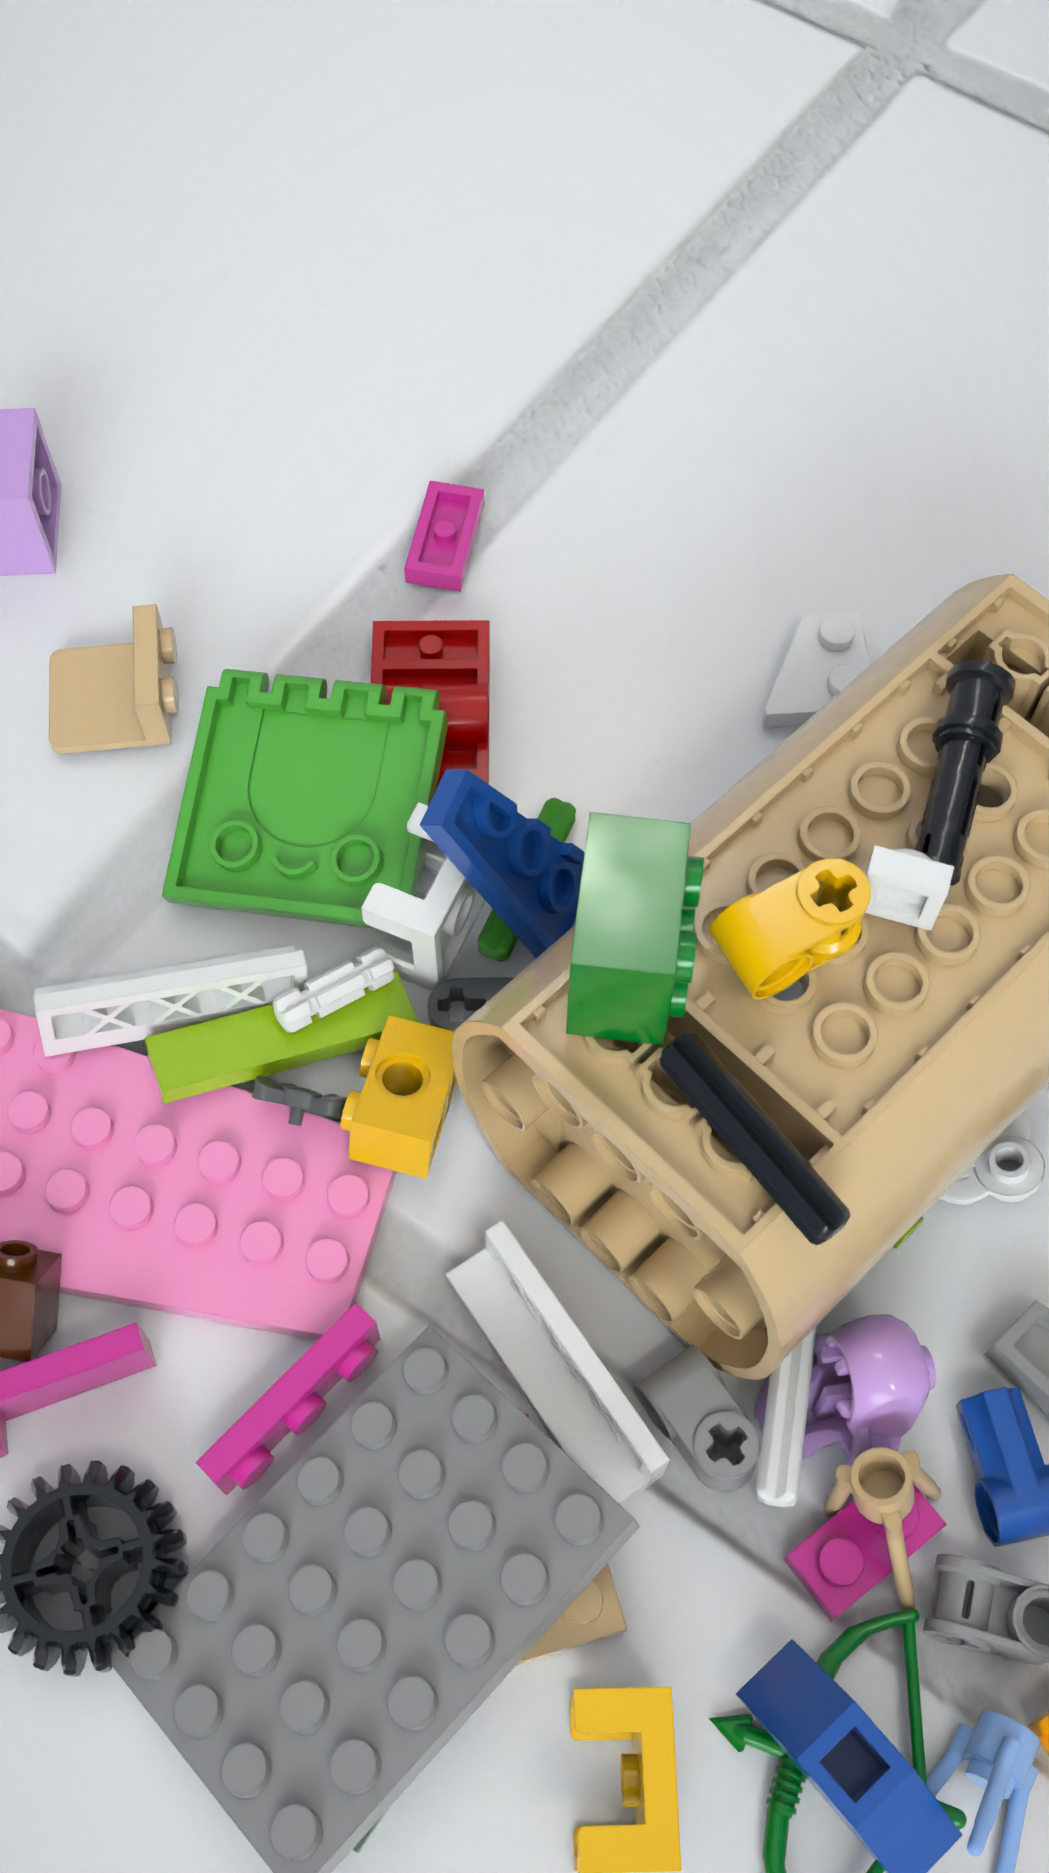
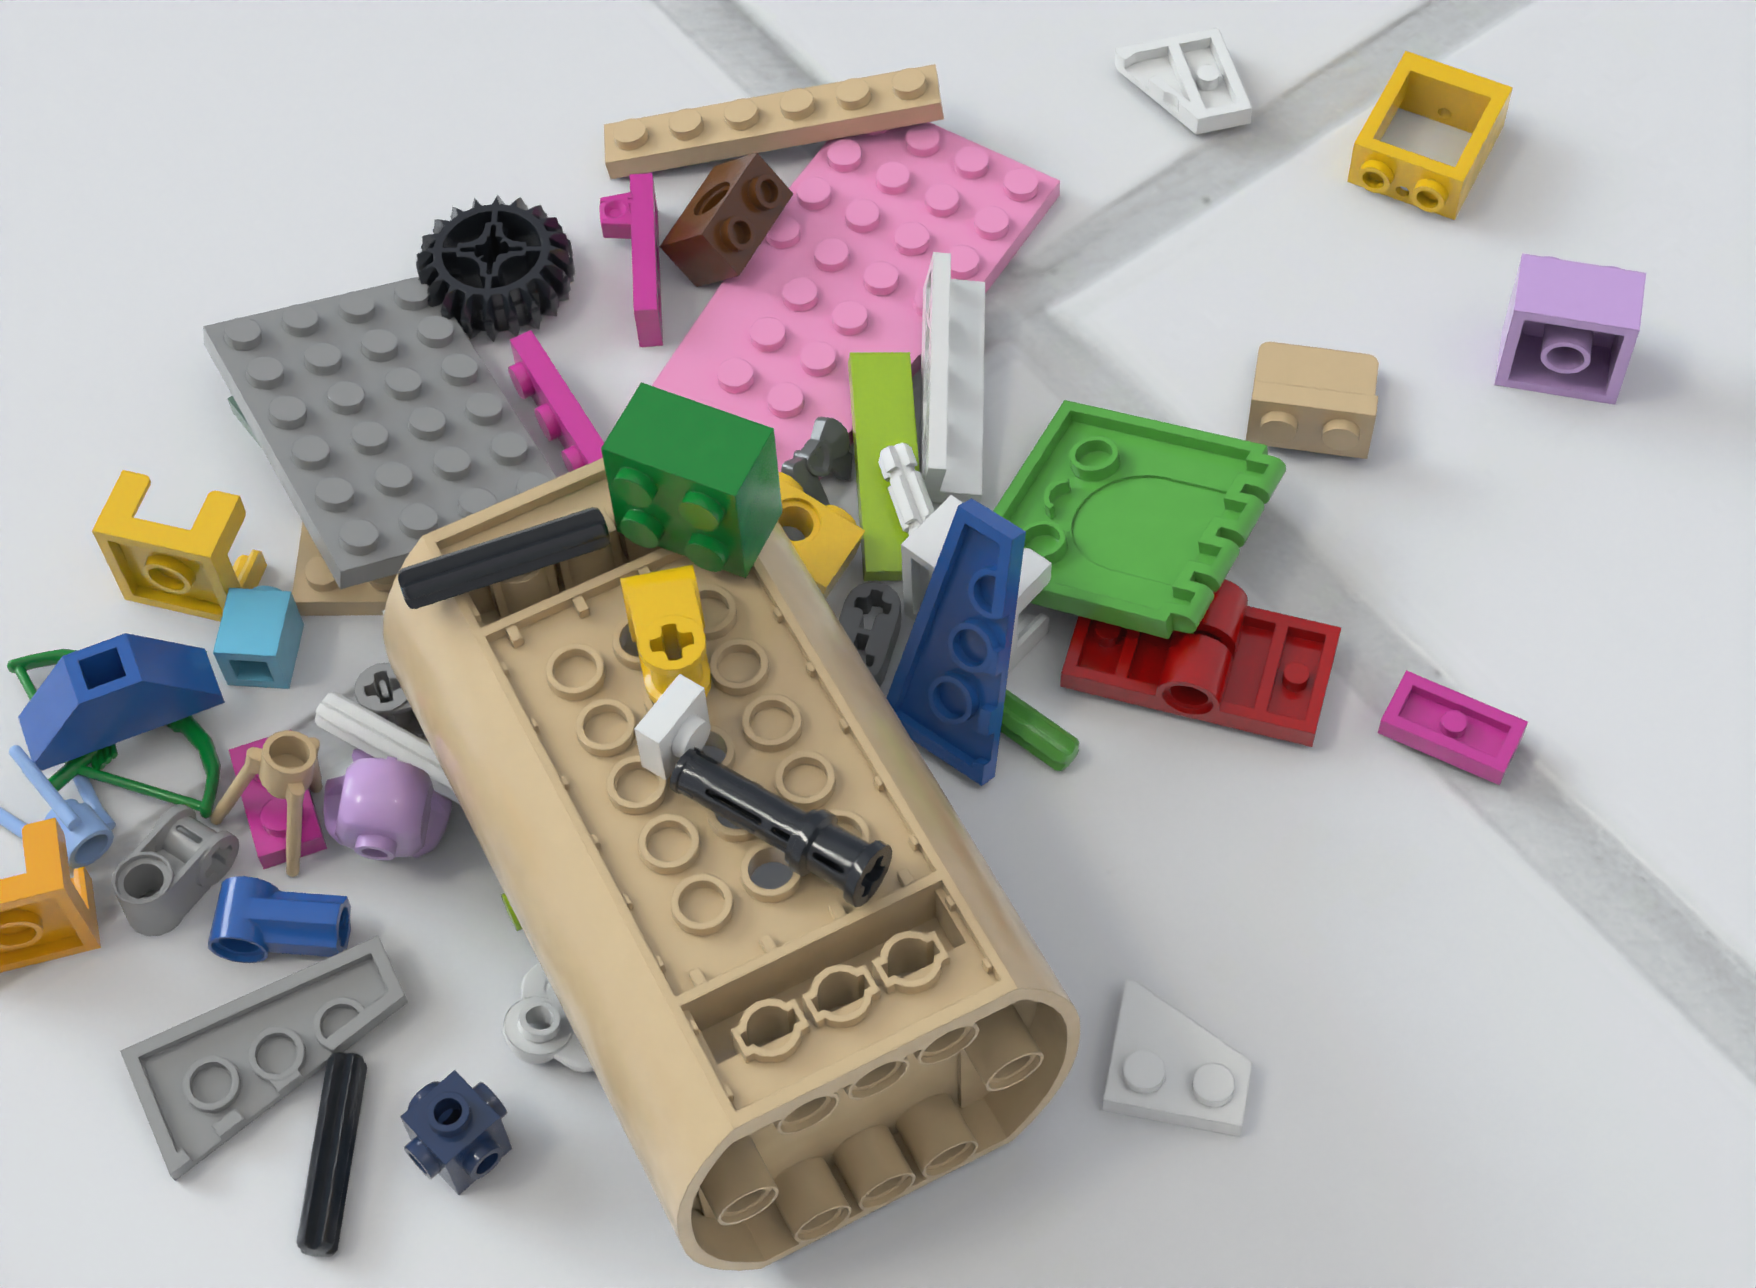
camera: 110 degrees right, 5 degrees down
(687, 1641) = (259, 637): none -> medium azure brick

